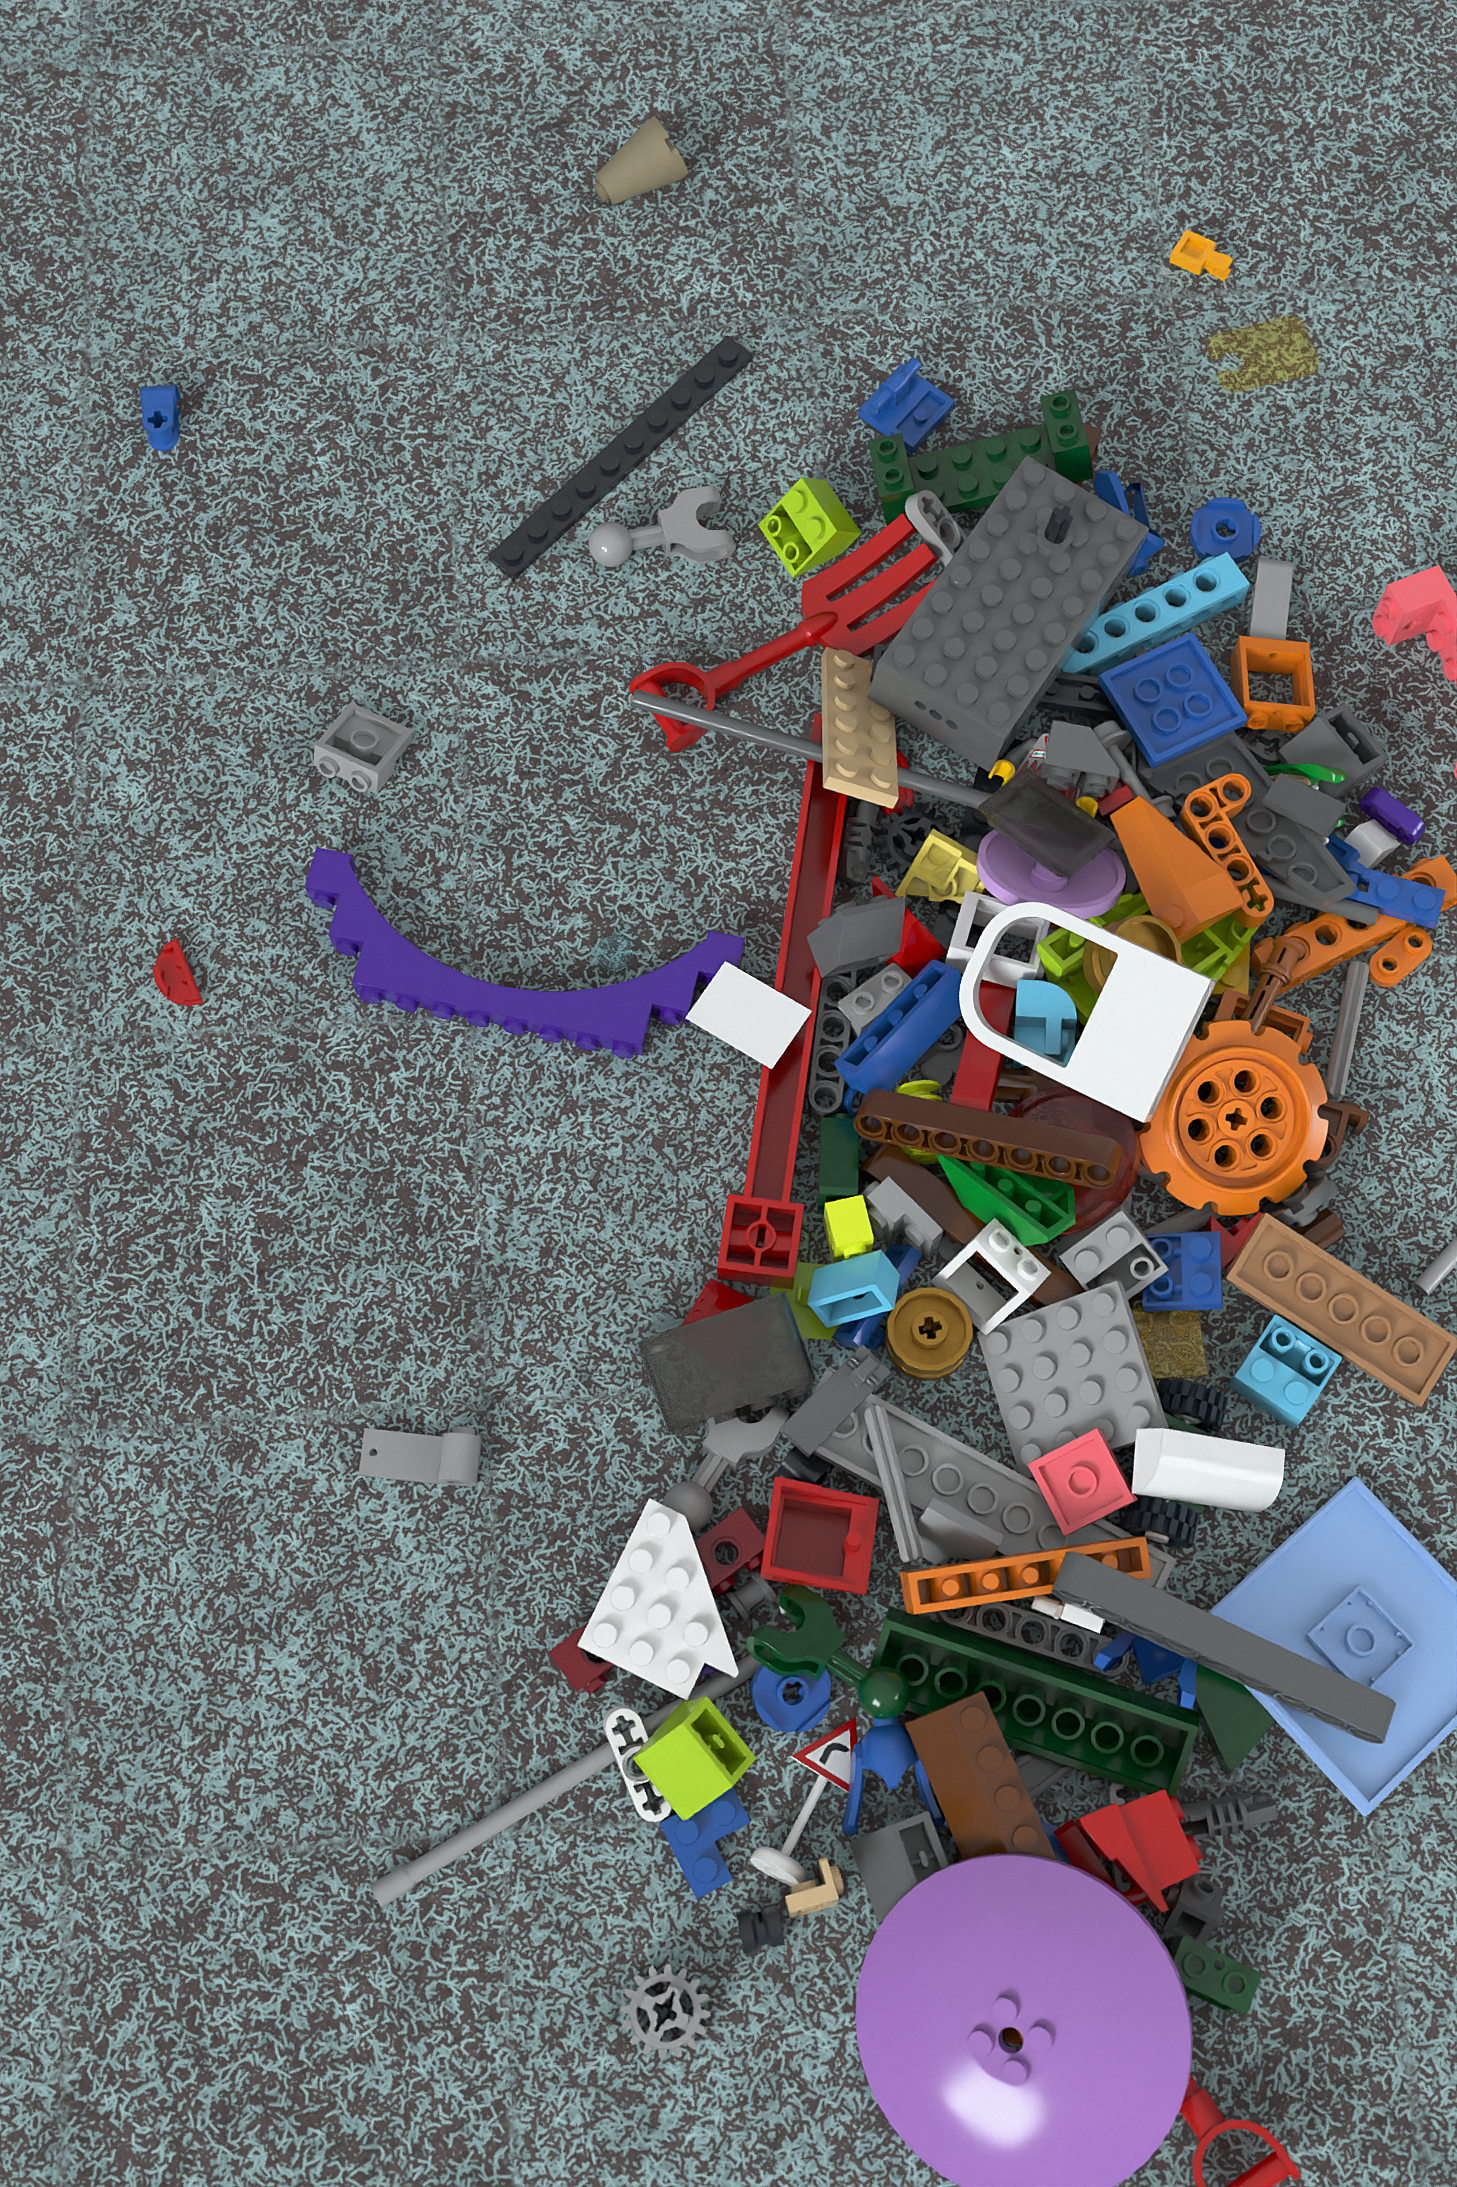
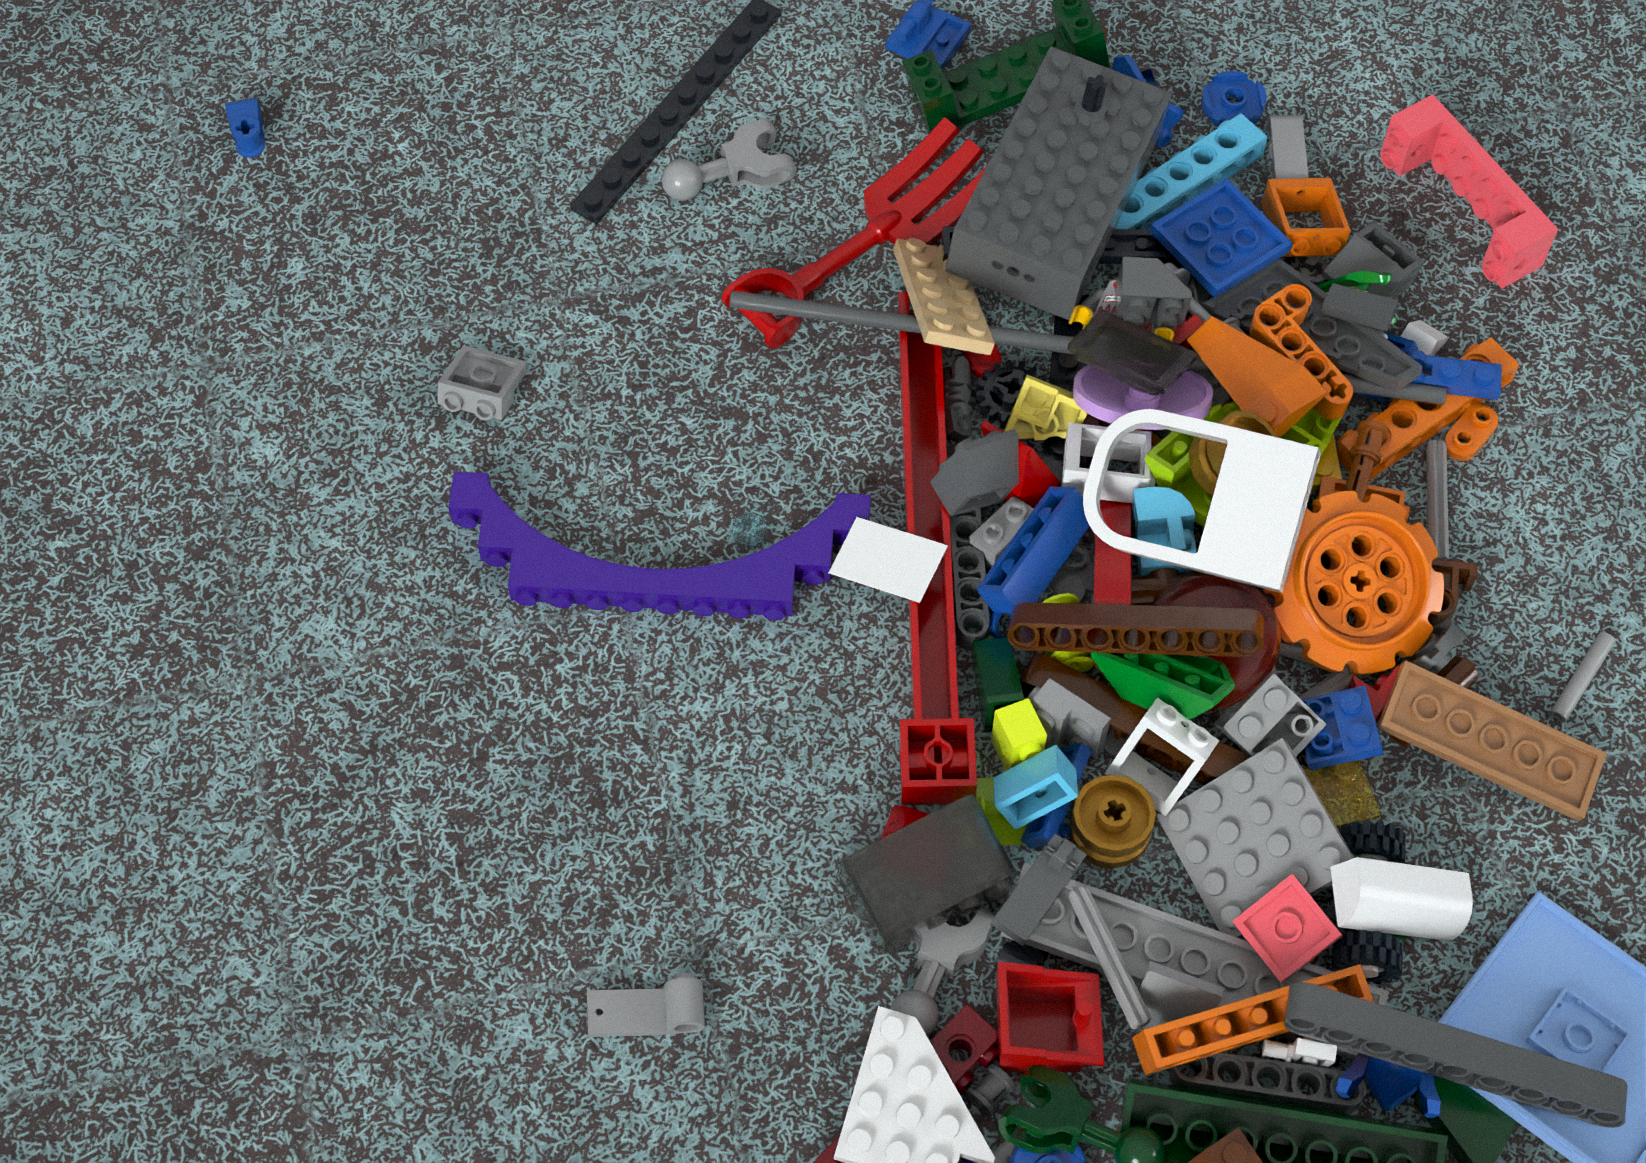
camera: 10 degrees left, 10 degrees down
(175, 977) = (334, 608): red tile -> none
(809, 526) = (859, 142): lime slope -> none
(927, 516) = (971, 118): light grey beam -> none
(1285, 1372) = (1451, 805): medium azure slope -> none
(1392, 815) = (1437, 313): dark purple beam -> none

